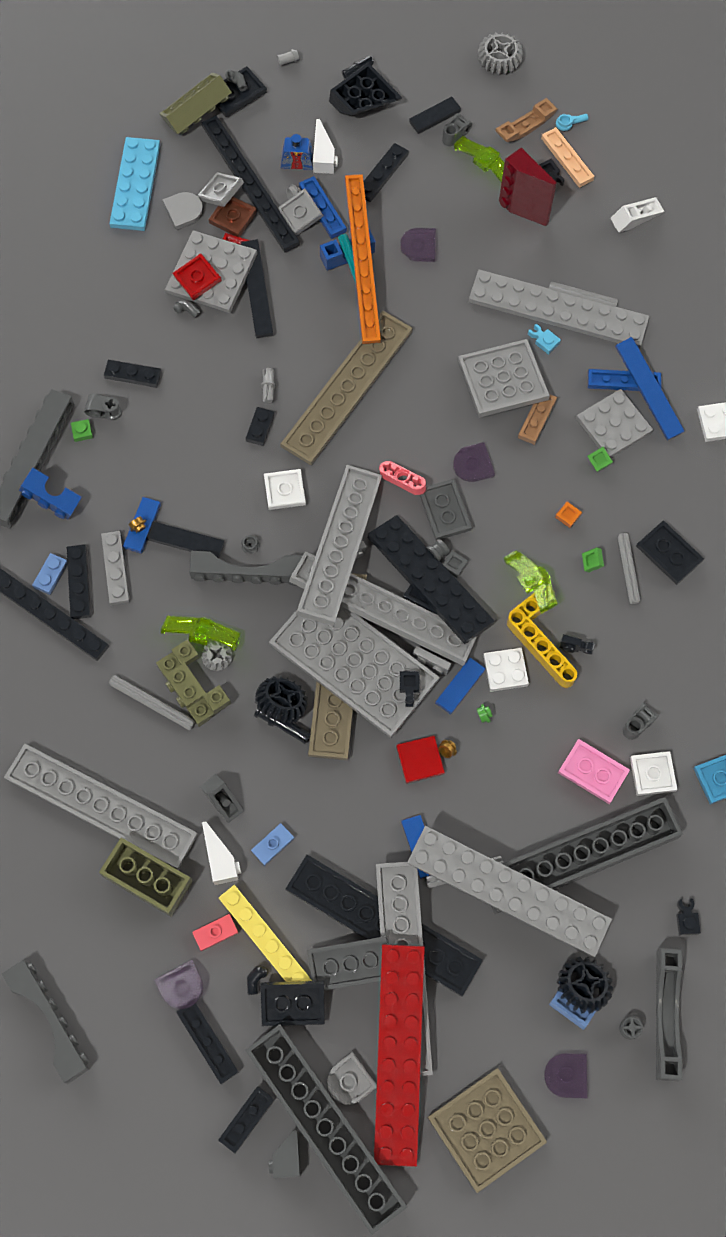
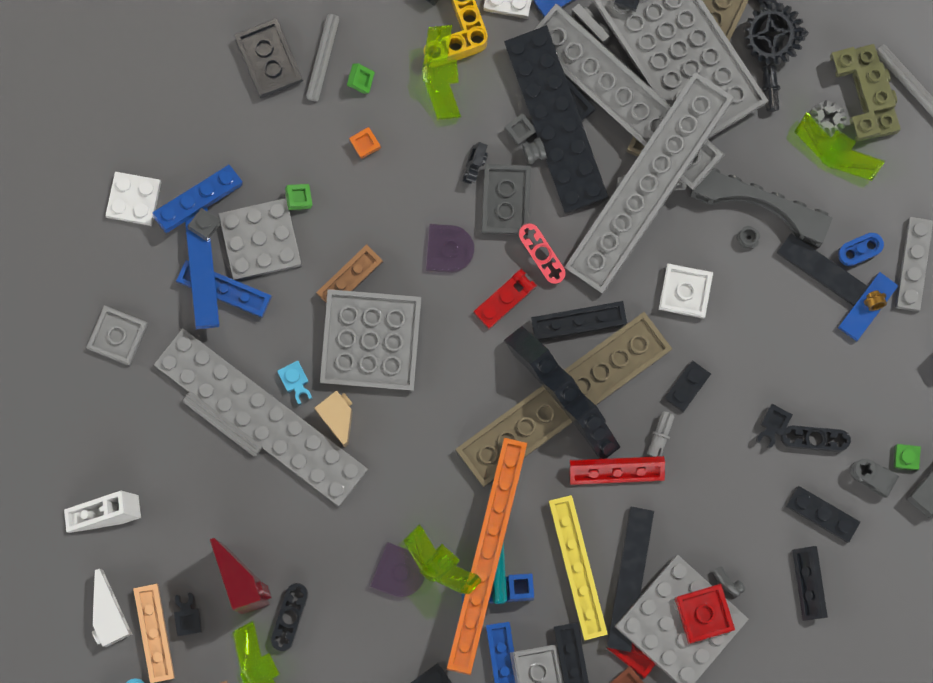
camera: 160 degrees left, 10 degrees up
(128, 323) = (809, 583): none -> black plate
(151, 427) = (798, 431): none -> black beam
(158, 561) = (860, 250): none -> blue plate
(187, 420) = (774, 422): none -> black plate
(269, 660) = (771, 88): none -> black axle
(296, 284) = (578, 567): none -> light yellow plate
(297, 350) = (617, 470): none -> red plate
(351, 378) = (564, 391): none -> black arch
(356, 442) = (579, 321): none -> black plate
(394, 246) = (439, 563): none -> clear neon green plate
(417, 441) = (504, 299): none -> red plate
(479, 530) = (476, 158): none -> black plate
(481, 201) = (300, 601): none -> black beam
(505, 322) = (337, 415): none -> tan slope
(602, 156) = (107, 615): none -> white slope
(659, 413) = (204, 224): none -> dark grey plate
(673, 431) = (197, 197): none -> blue plate
(684, 328) = (117, 335): none -> light grey tile

